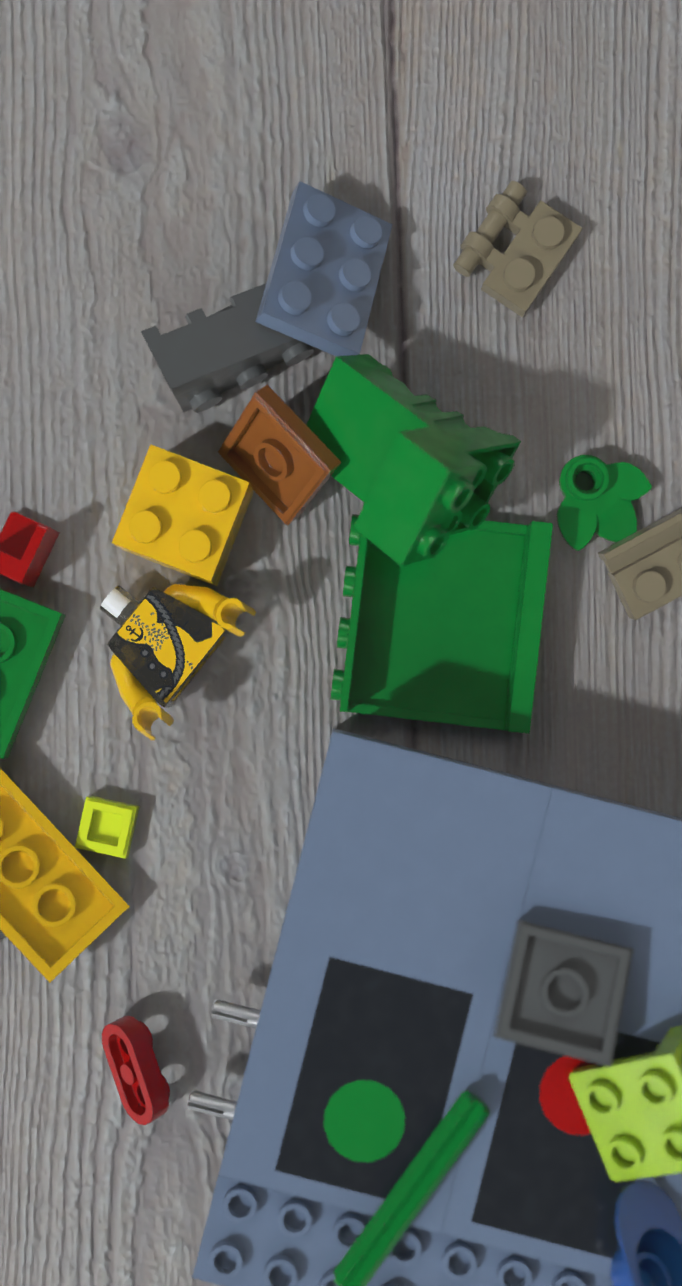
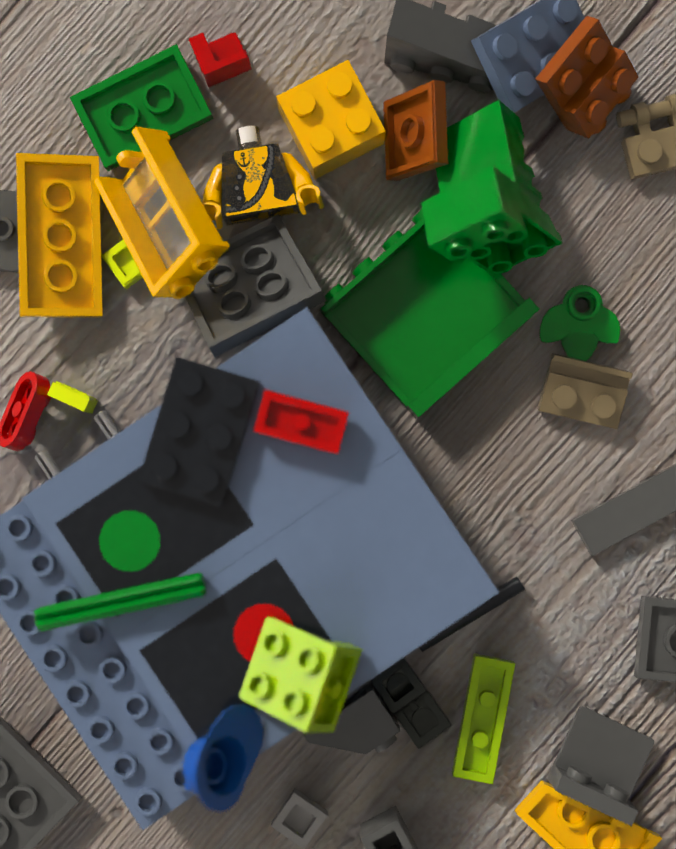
camera: 50 degrees right, 0 degrees up
(104, 763) = (161, 217): none -> yellow door
(171, 1012) = (72, 397): none -> neon yellow tile
(248, 754) = (253, 287): none -> dark grey plate
(338, 952) = (199, 431): none -> black plate
(399, 258) = (587, 79): none -> dark orange plate
(432, 853) = (301, 421): none -> red plate
(563, 993) = (305, 565): dark grey plate -> none

